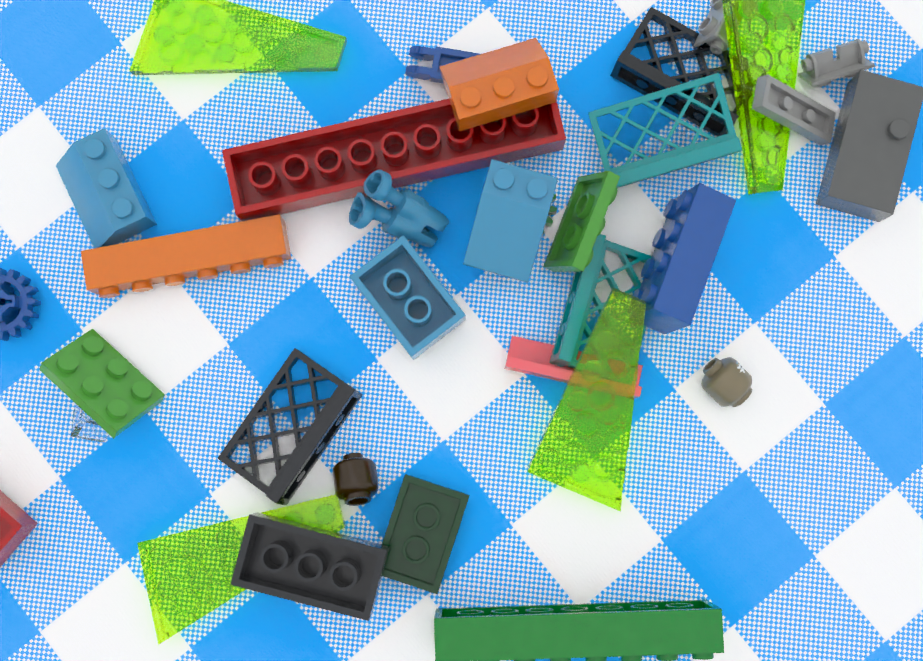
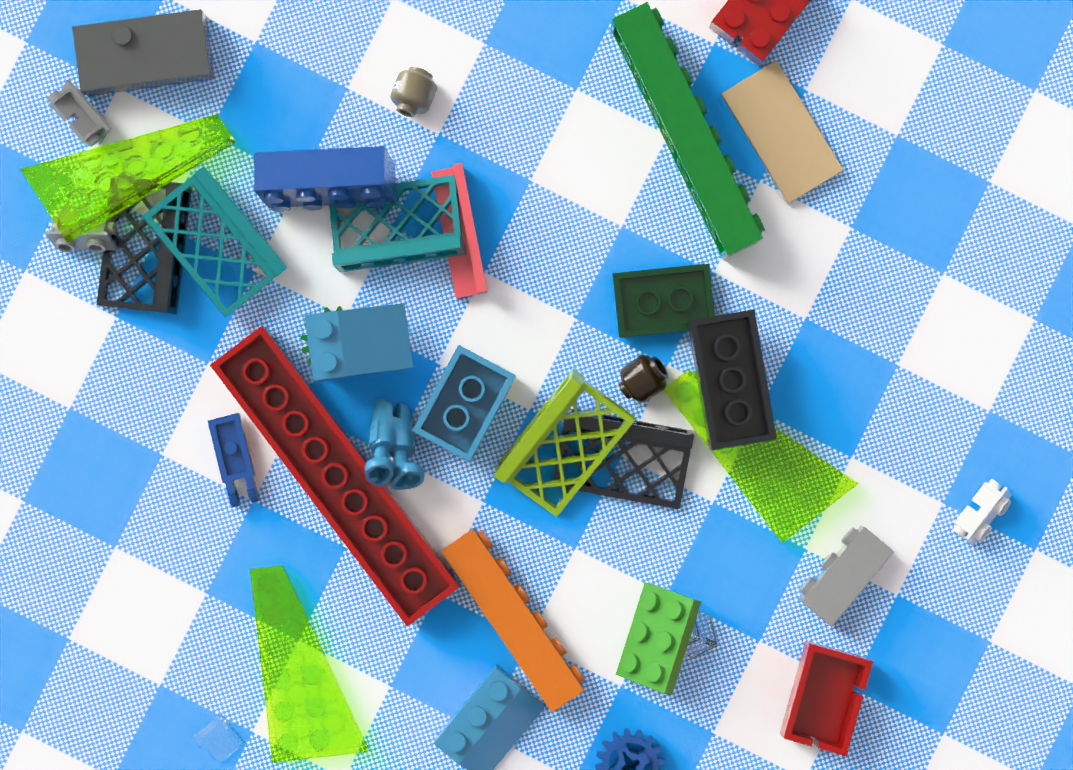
camera: 120 degrees left, 5 degrees up
(78, 590) = (845, 574): none -> light grey brick
(355, 368) = (543, 424): none -> lime fence
(499, 83) = (238, 406): orange slope -> none
(582, 222) = (329, 279): bright green plate -> none
(592, 422) = (504, 194): clear neon green wing -> none
(793, 110) = (143, 134): light grey plate -> none

